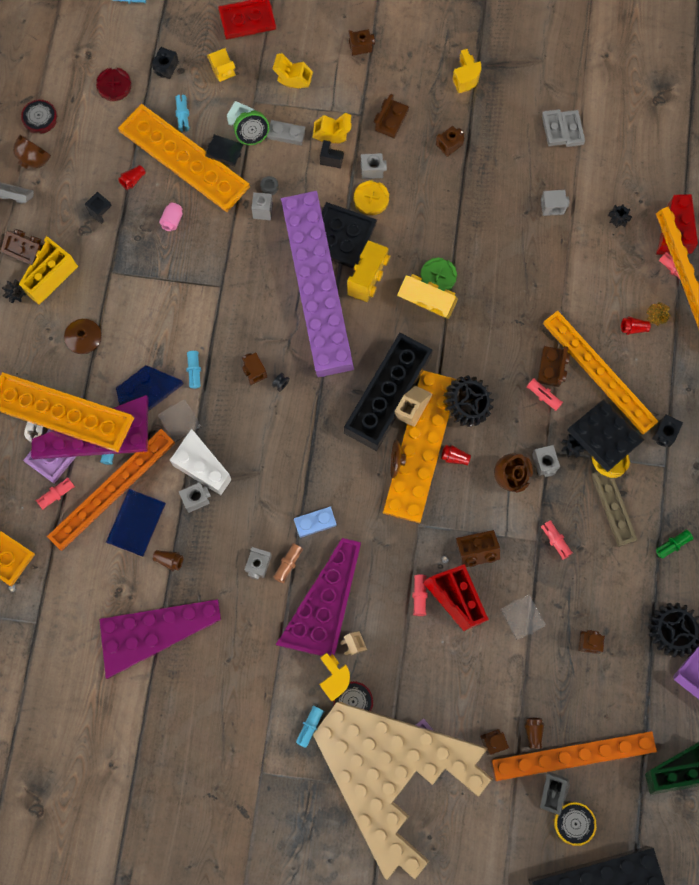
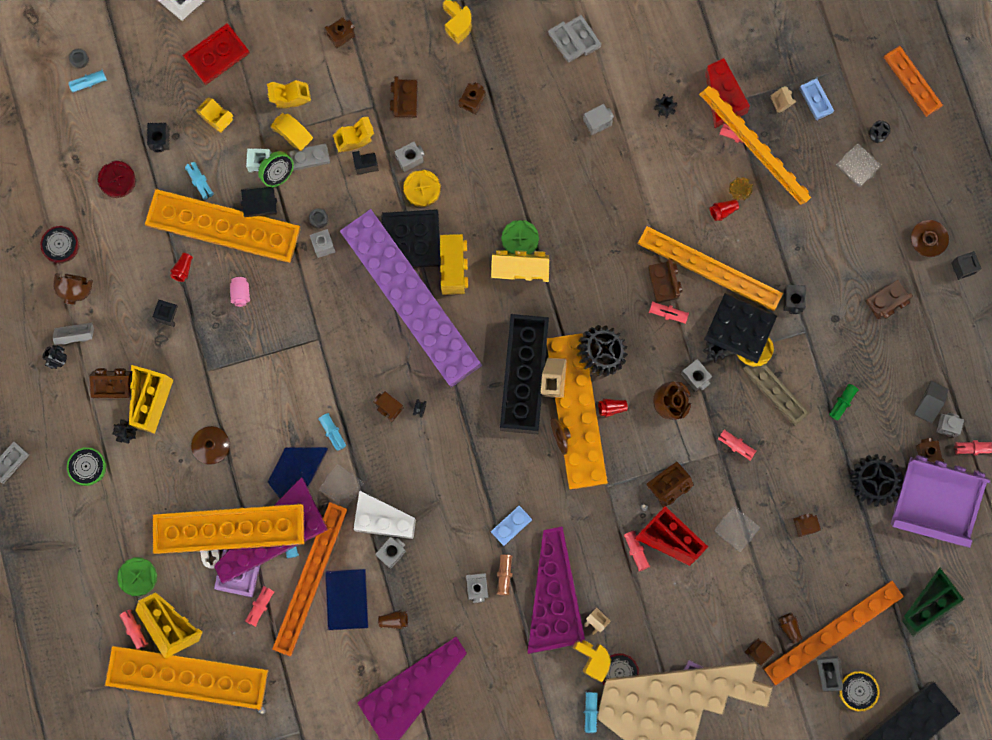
camera: 20 degrees left, 5 degrees up
(280, 103) = (291, 131): none -> yellow brick

